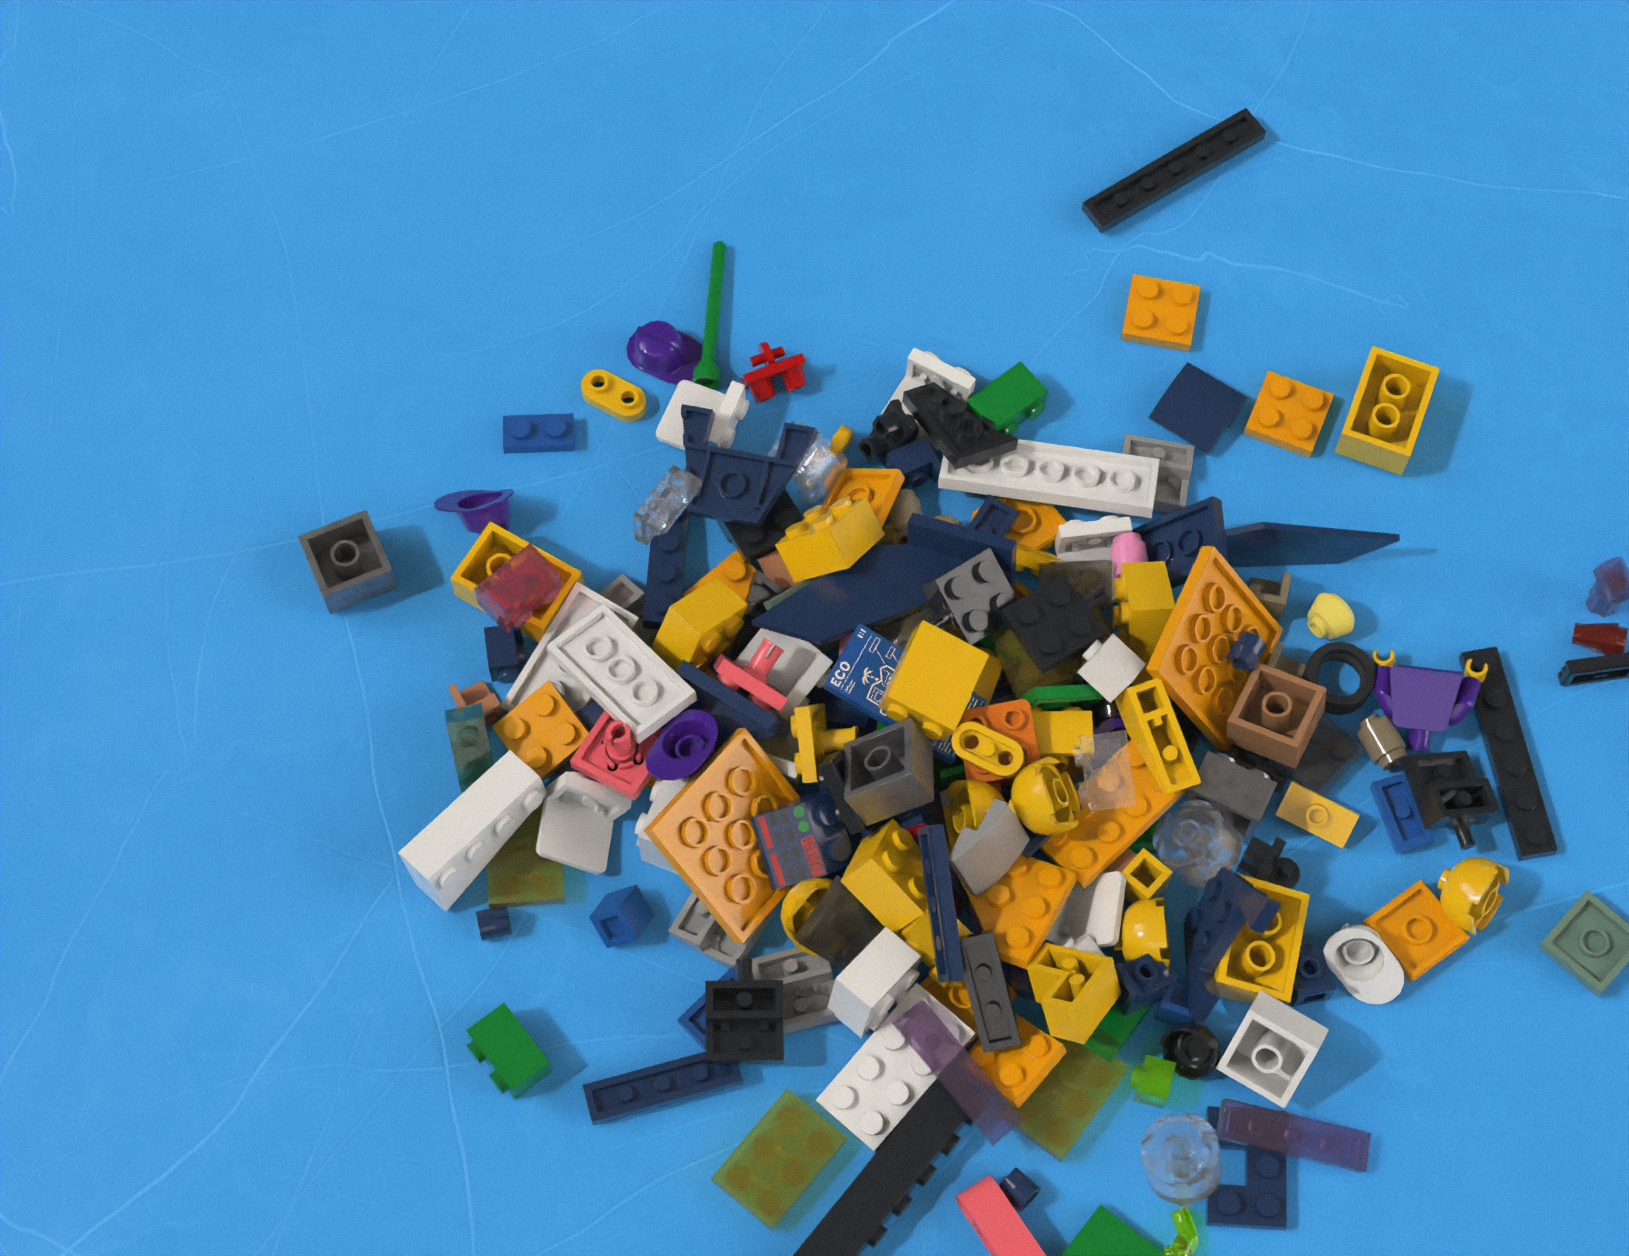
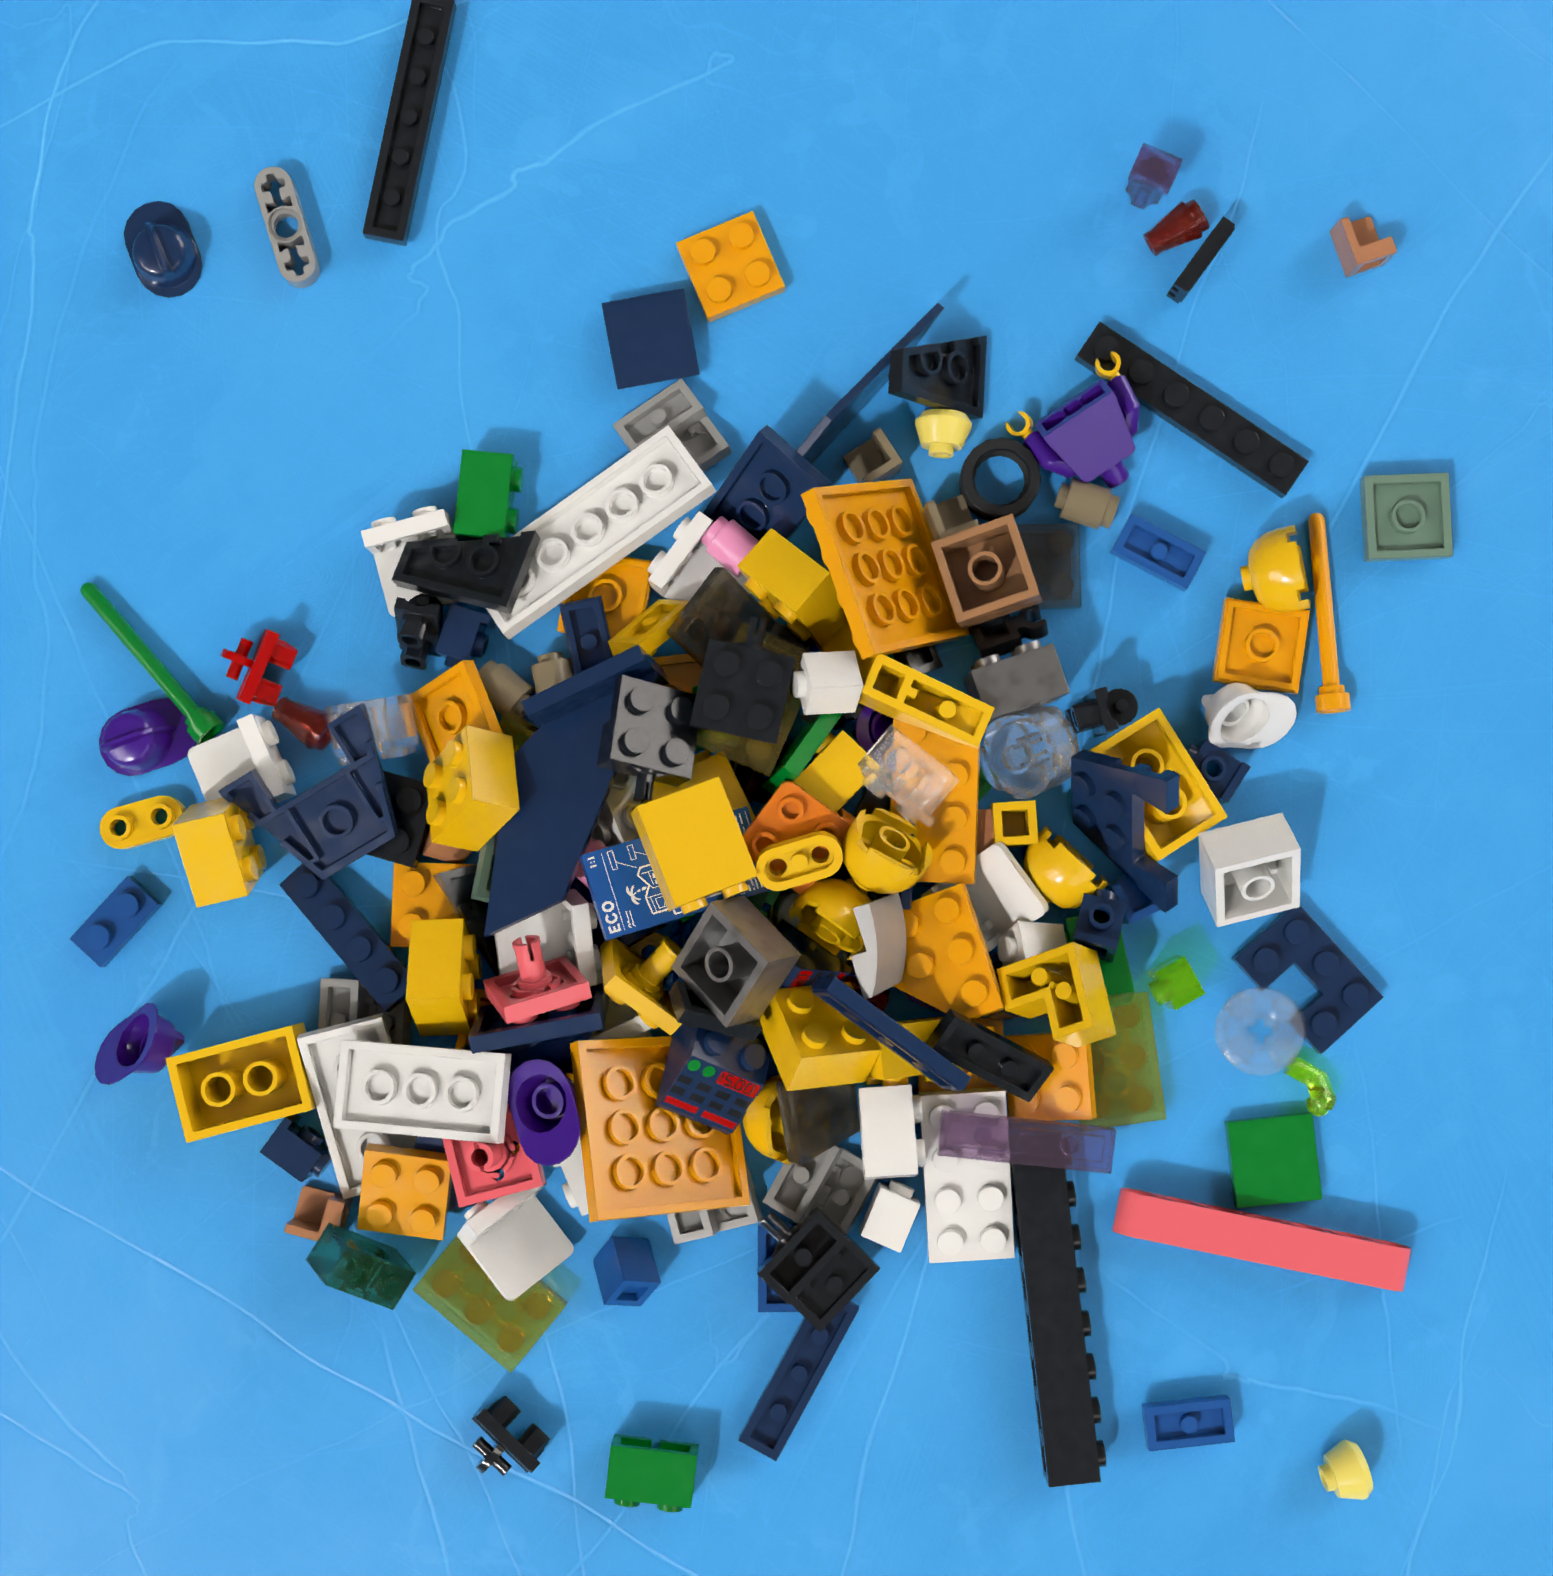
camera: 40 degrees left, 20 degrees up
(348, 562) = (81, 1207): flat silver brick -> none
(444, 927) = (522, 1450): none -> black hips
(472, 830) = (437, 1337): white wedge -> none
(493, 923) = (529, 1380): dark blue hose -> none
(519, 588) = (257, 1101): clear pink brick -> none
(645, 440) = (218, 851): none -> yellow brick
(665, 504) = (299, 893): clear bracket -> none
(766, 425) = (304, 722): none -> clear red cone
(779, 1159) = (948, 1339): clear yellow plate -> none
(821, 1044) = (890, 1215): none -> white brick
(841, 439) = (381, 675): yellow tile -> none
(955, 115) = (163, 249): none -> dark blue piece
(1019, 1189) = (1154, 1174): dark blue hose -> none
(1041, 177) = (289, 197): none -> light grey beam
(1160, 312) = (531, 274): light orange plate -> none
(1192, 1049) = (1182, 929): black hair -> none
(1246, 651) = (914, 543): dark blue hose -> none
(1293, 1135) = (1325, 921): clear purple tile -> none
(1317, 814) = (1092, 621): yellow plate -> none
(1361, 579) = (941, 375): none -> black wing
(1387, 410) = (815, 184): yellow brick -> none
(1435, 1006) = (1331, 695): none -> light orange piece
(1450, 793) = (1184, 498): black plate -> none

